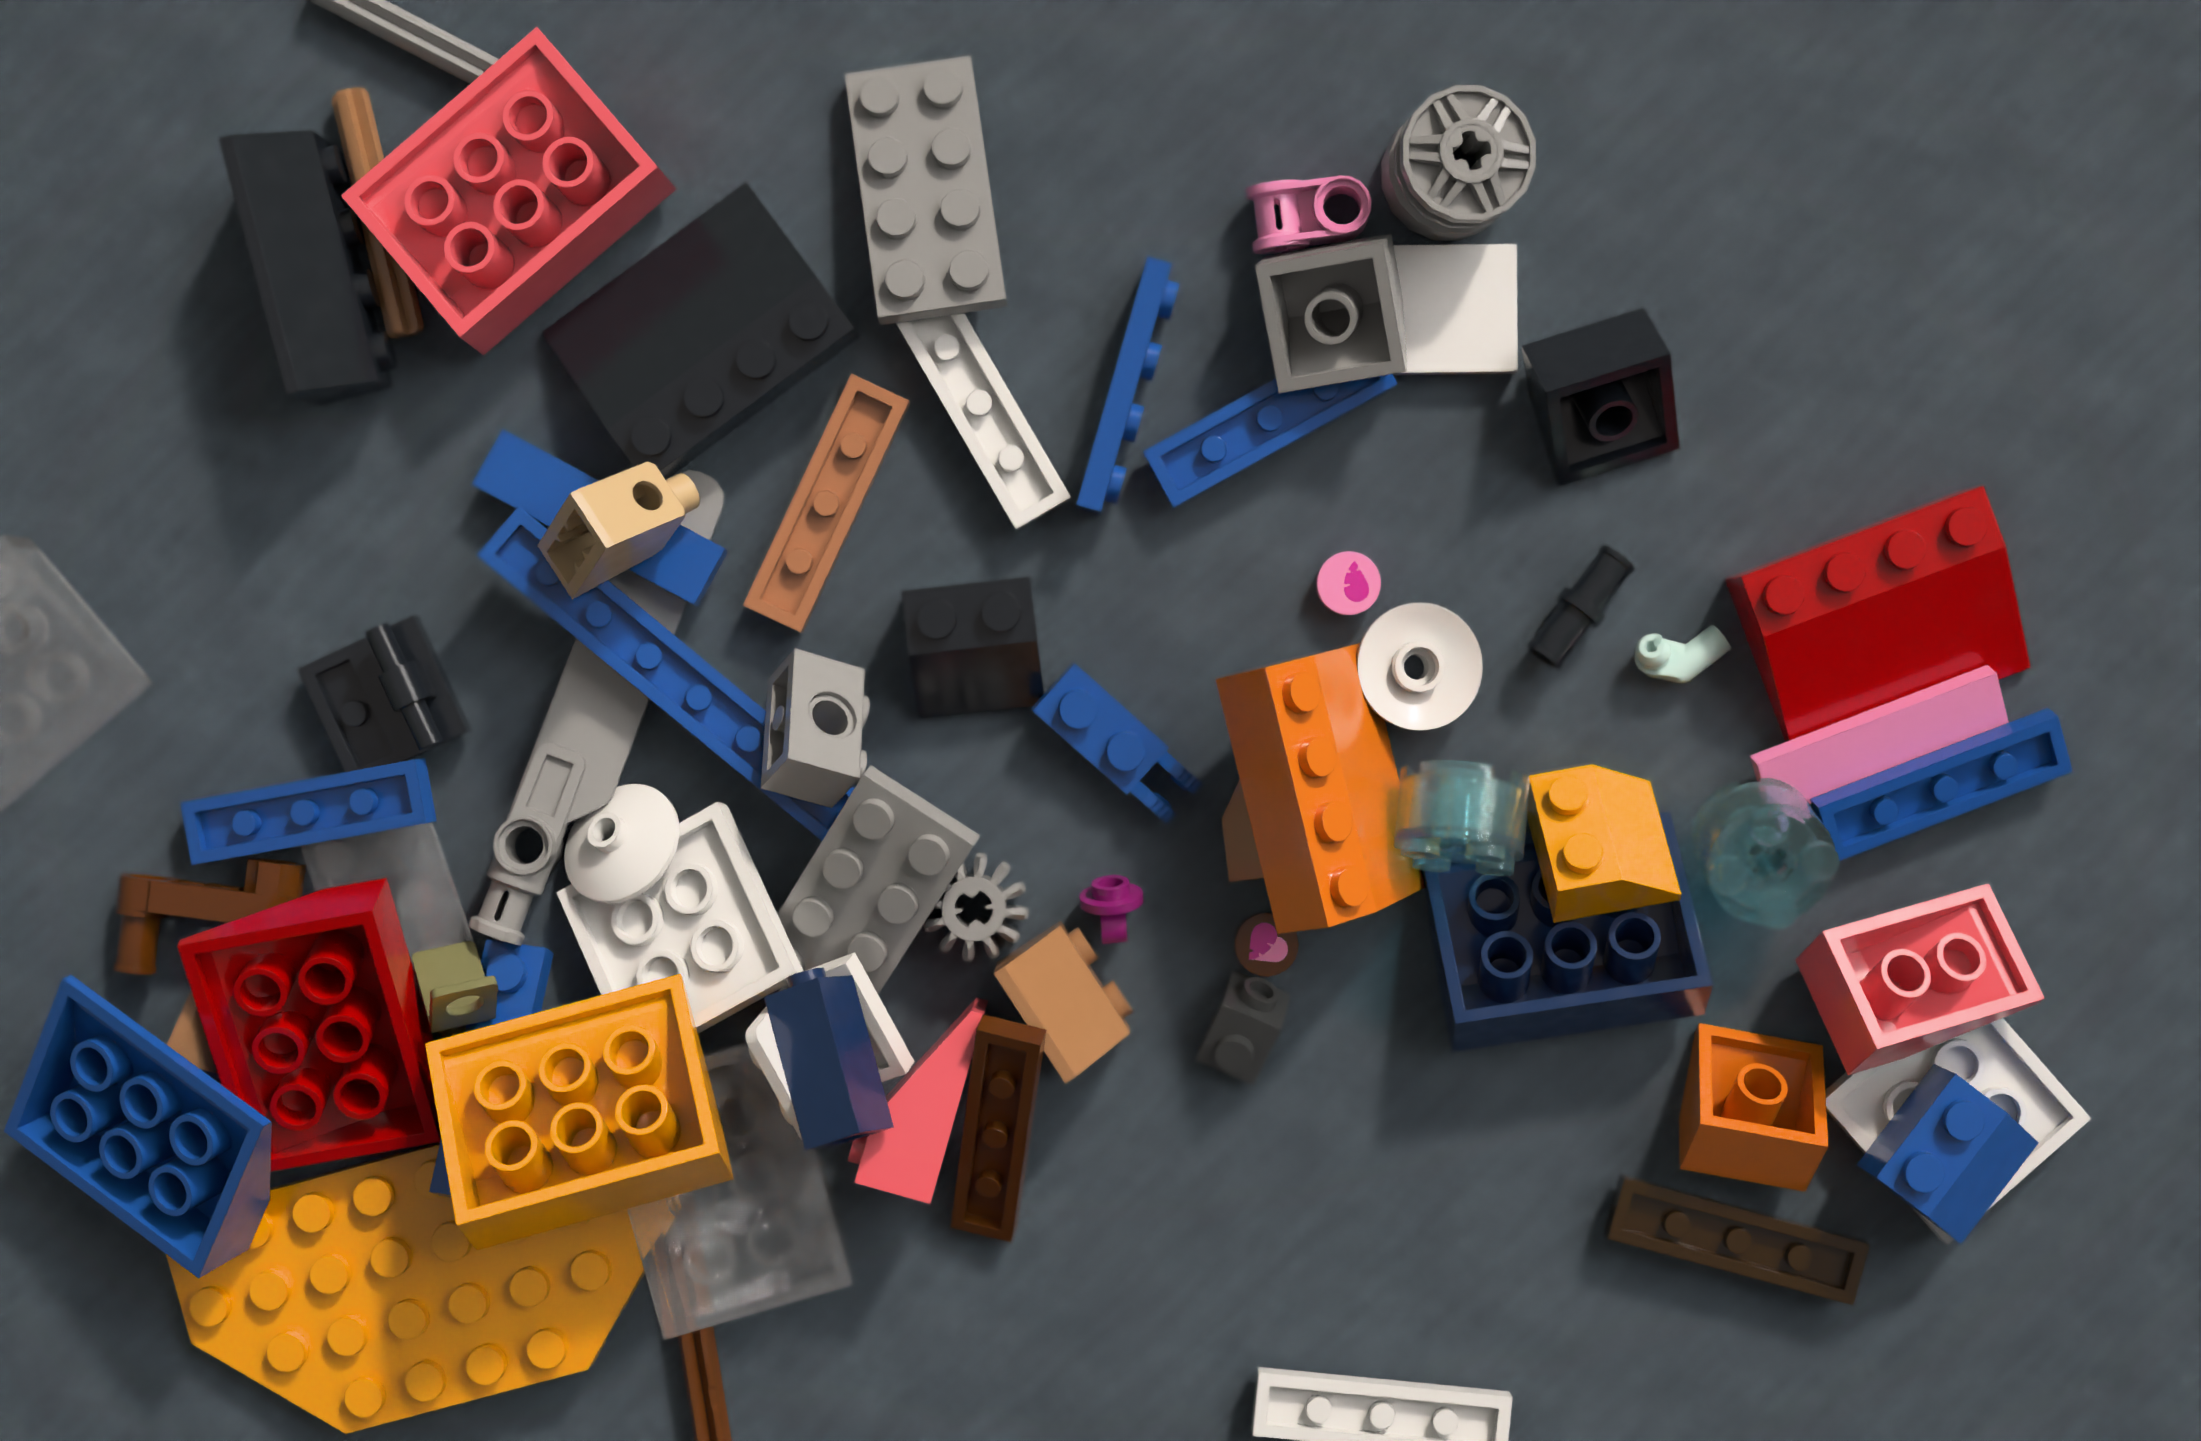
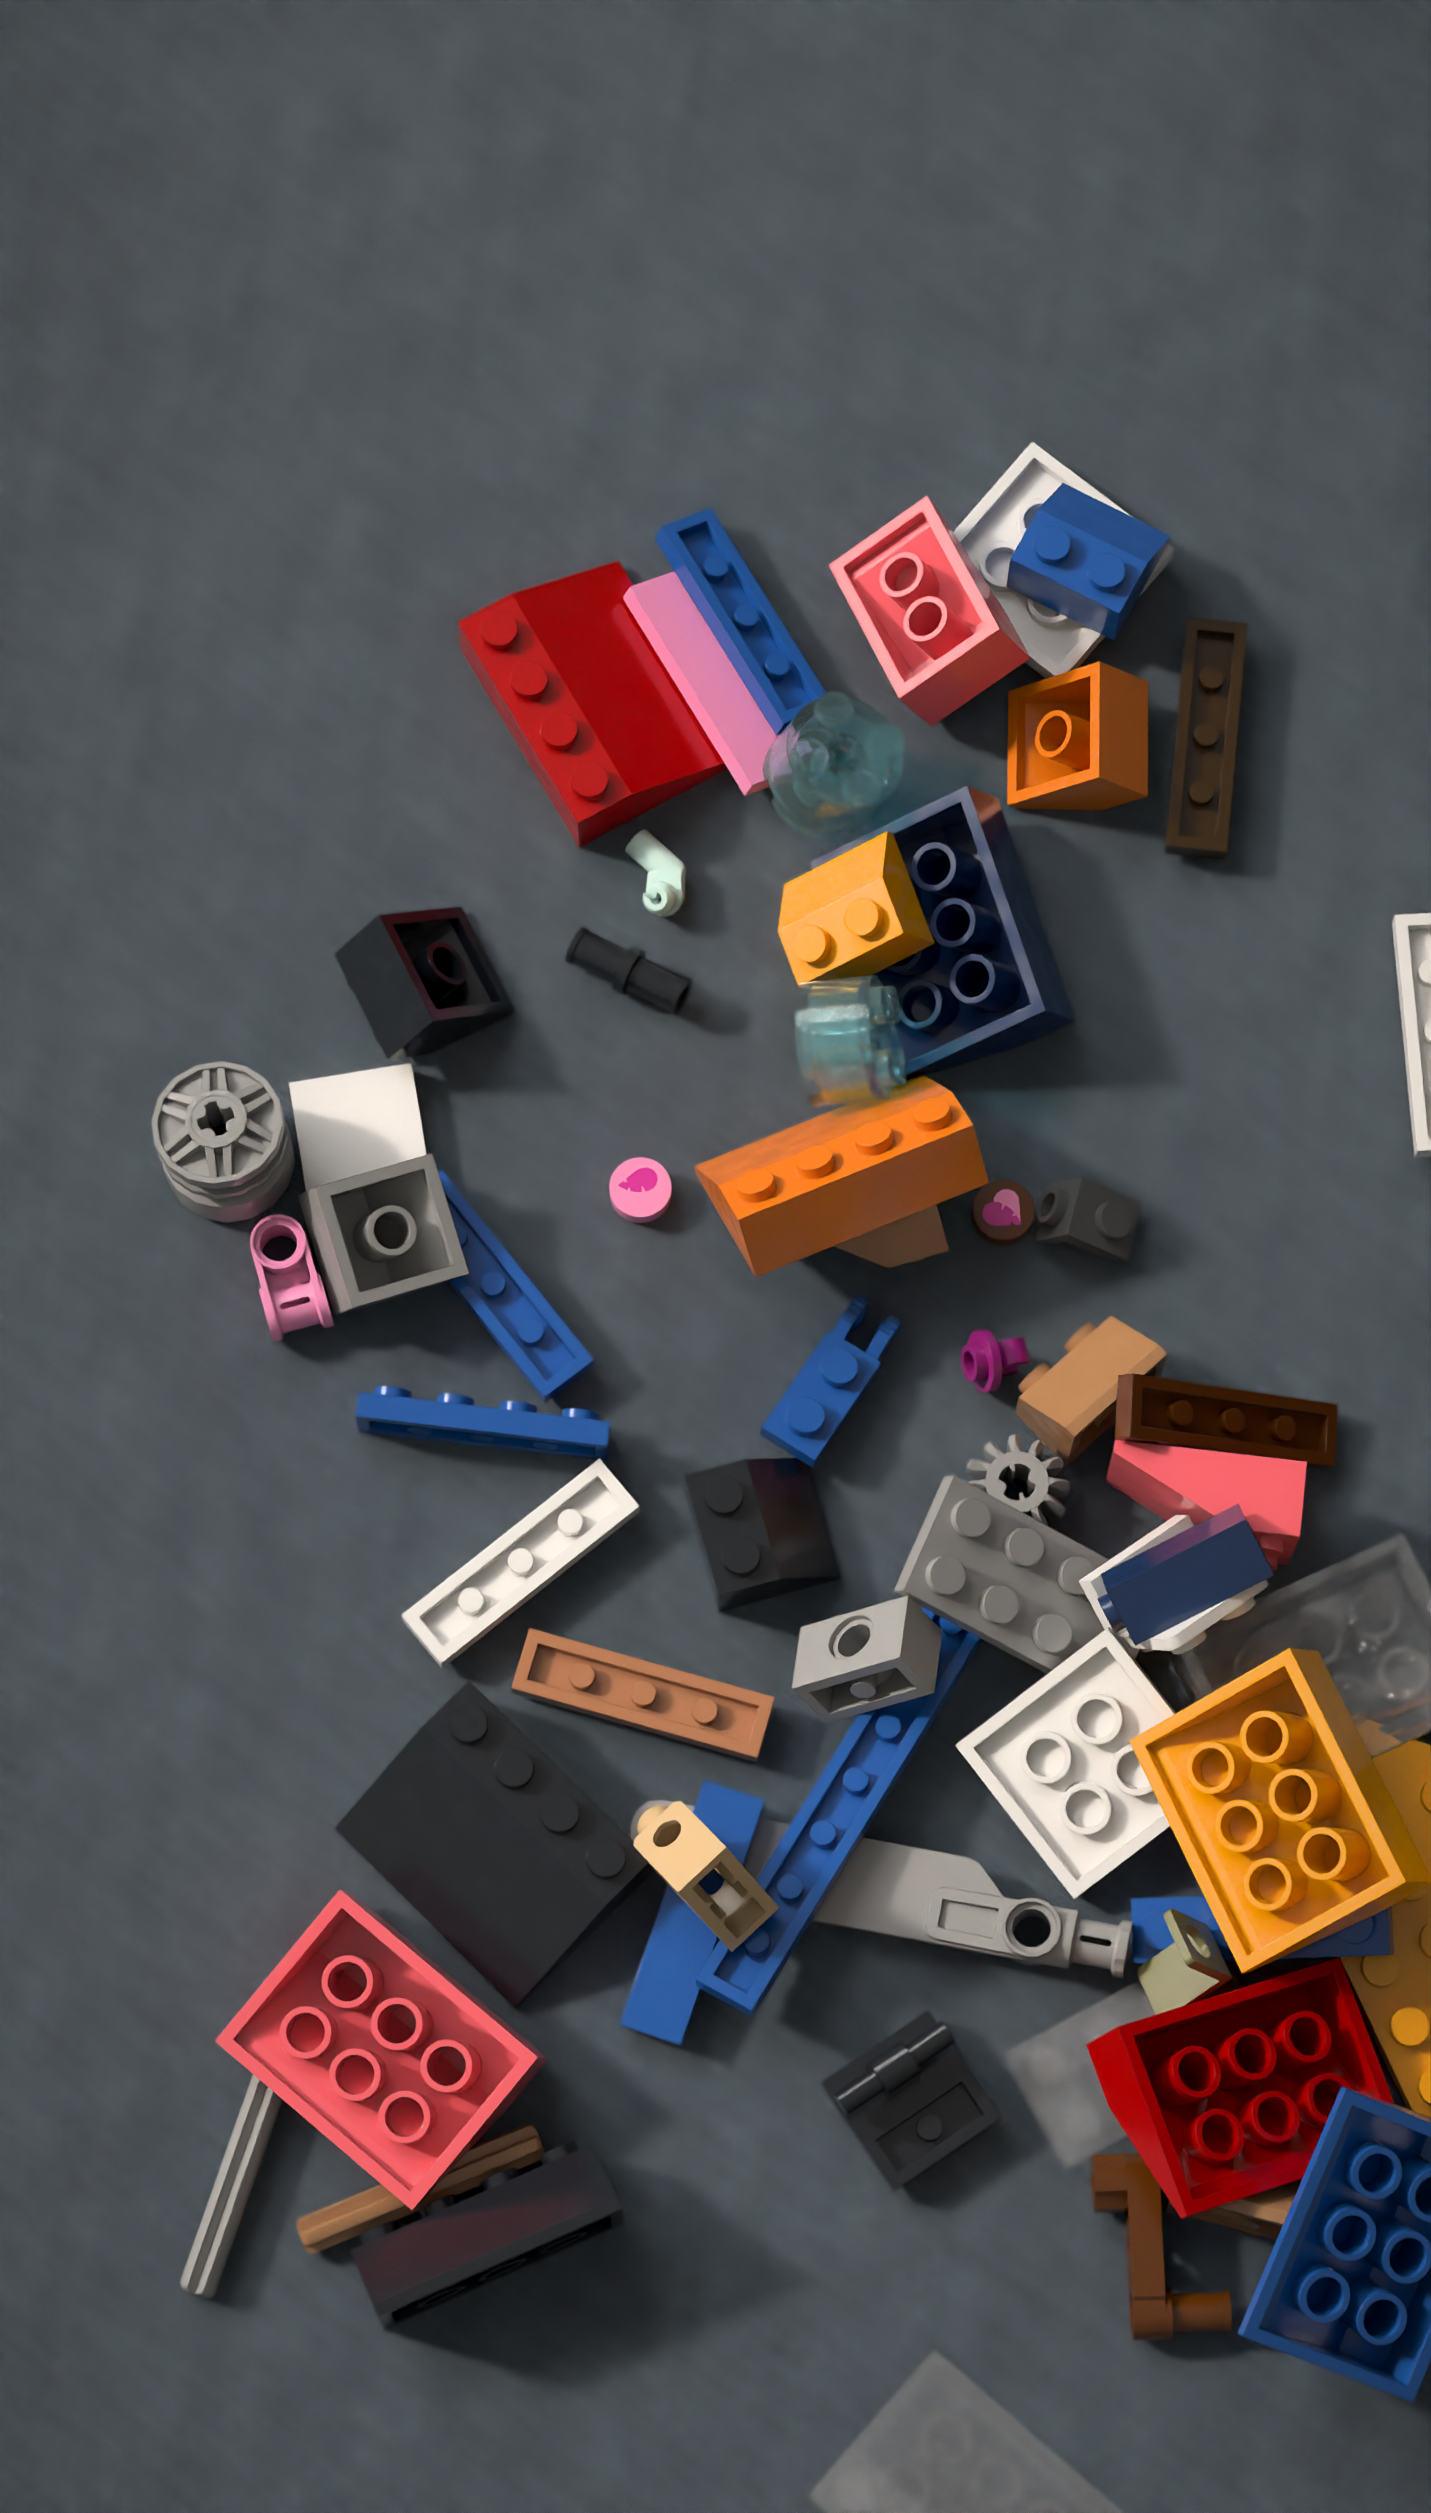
camera: 100 degrees left, 15 degrees down
(308, 811) = (1036, 2153): blue plate -> none
(622, 845) = (1031, 1821): white dish -> none
(925, 190) = (319, 1645): light grey plate -> none
(1450, 666) = (703, 1083): white dish -> none

